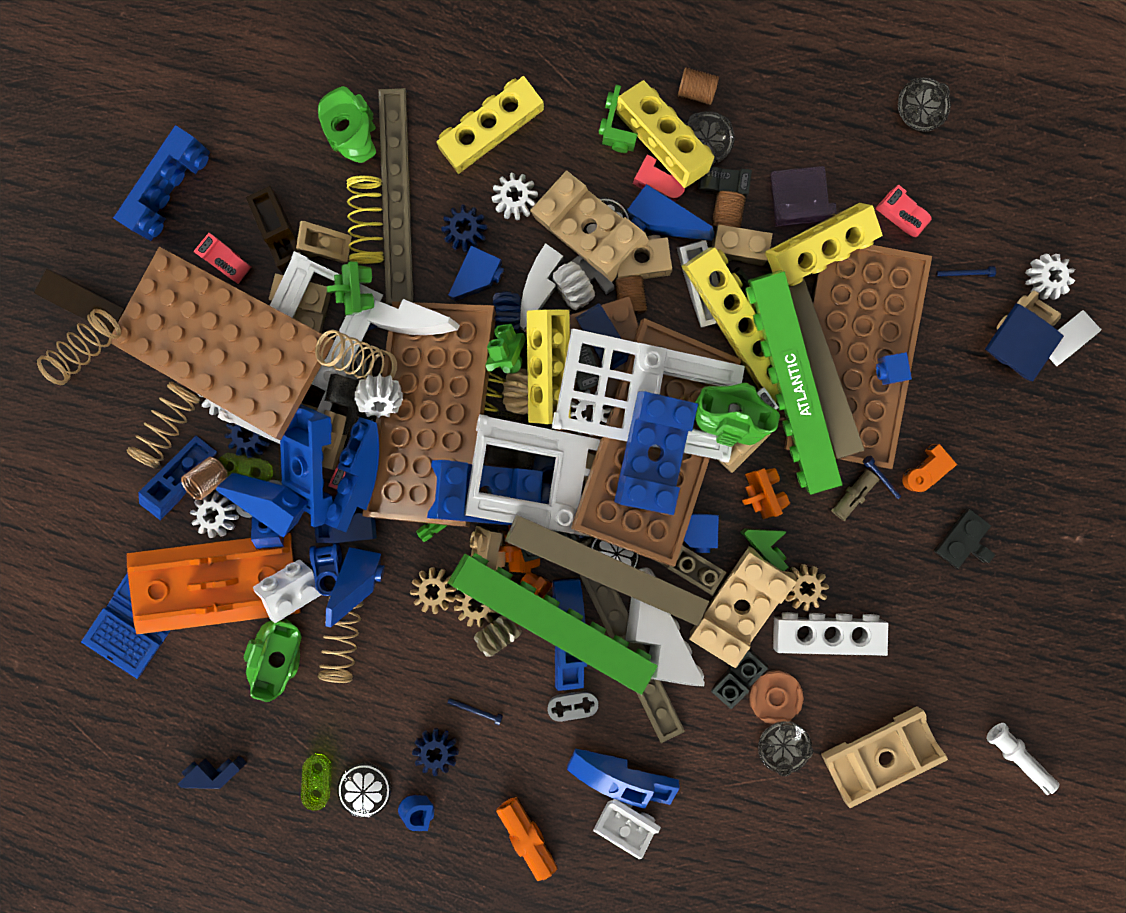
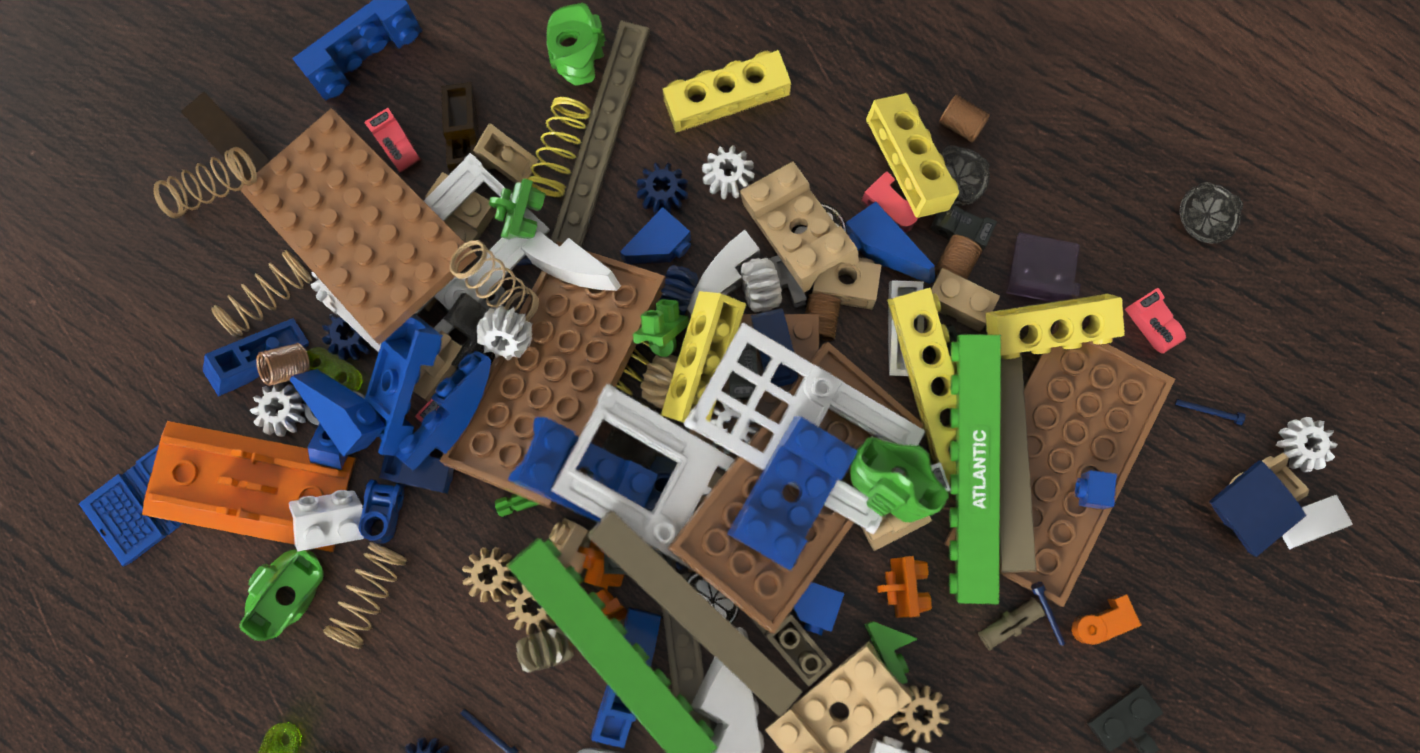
camera: 20 degrees right, 10 degrees down
(207, 777) = (154, 704): dark blue slope -> none
(354, 583) = (401, 535): blue slope -> none
(620, 140) = (859, 146): bright green bracket -> none

